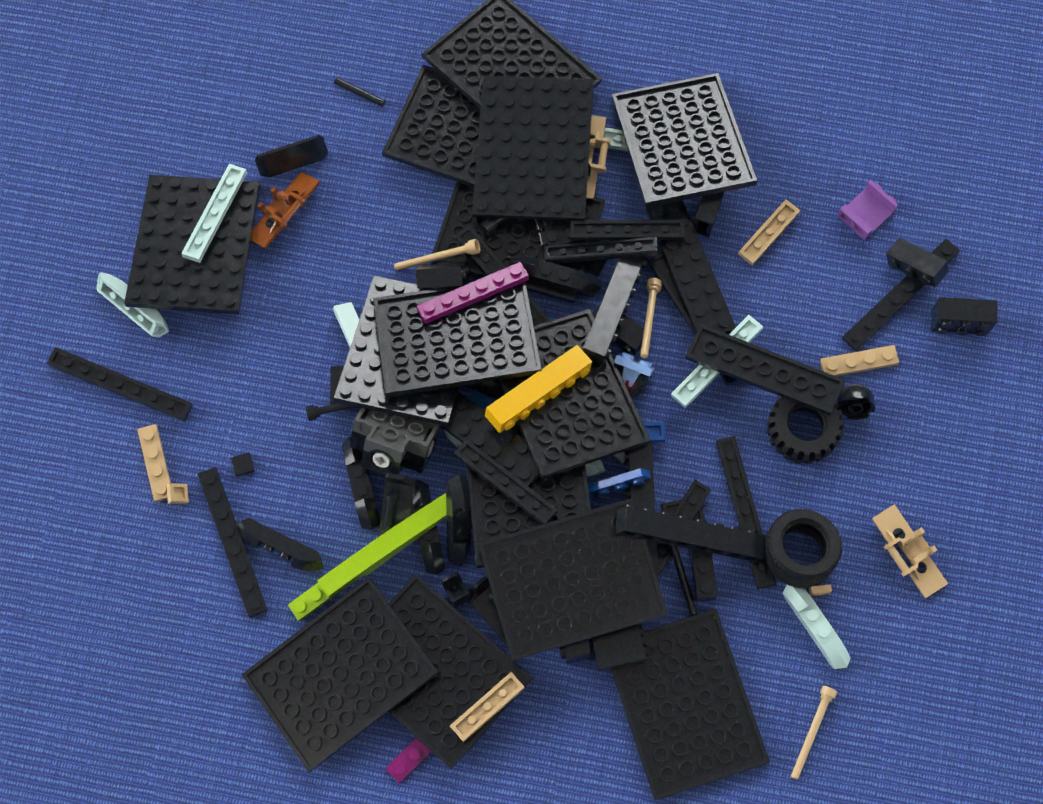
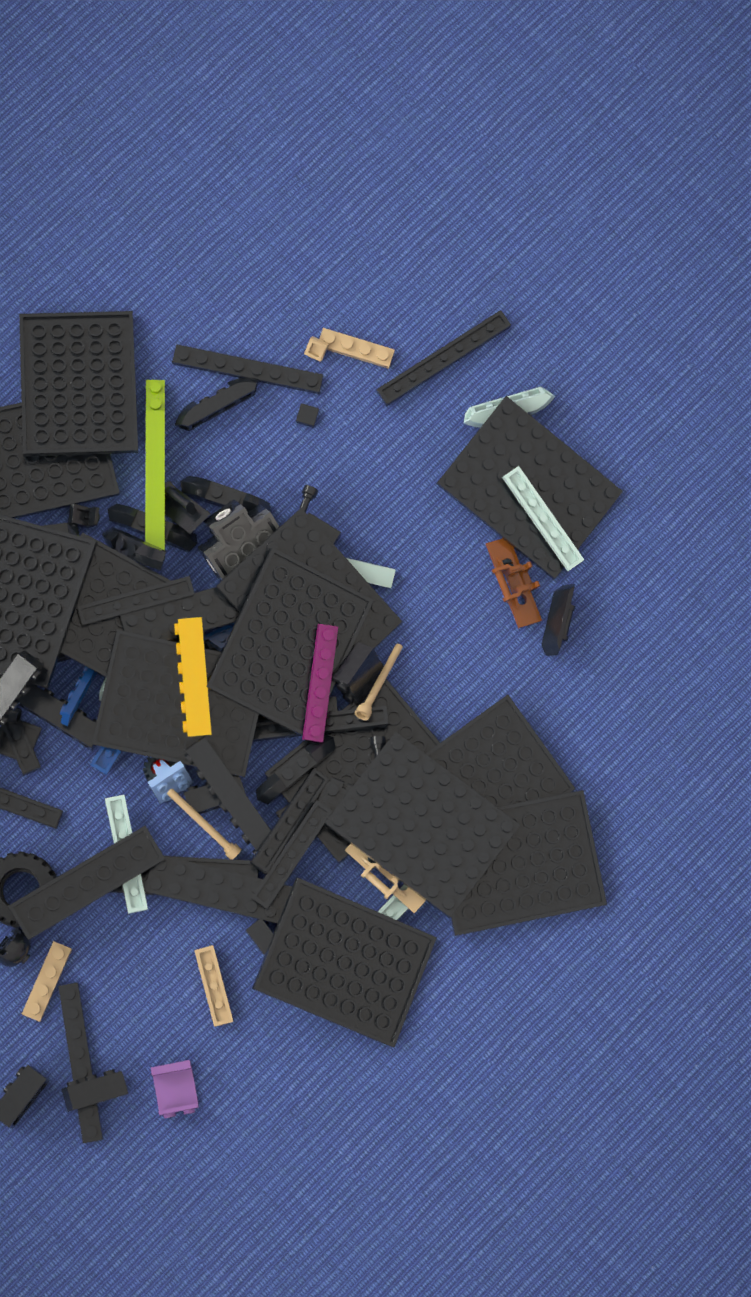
camera: 115 degrees right, 5 degrees up
(356, 90) = (587, 718): black bar -> none

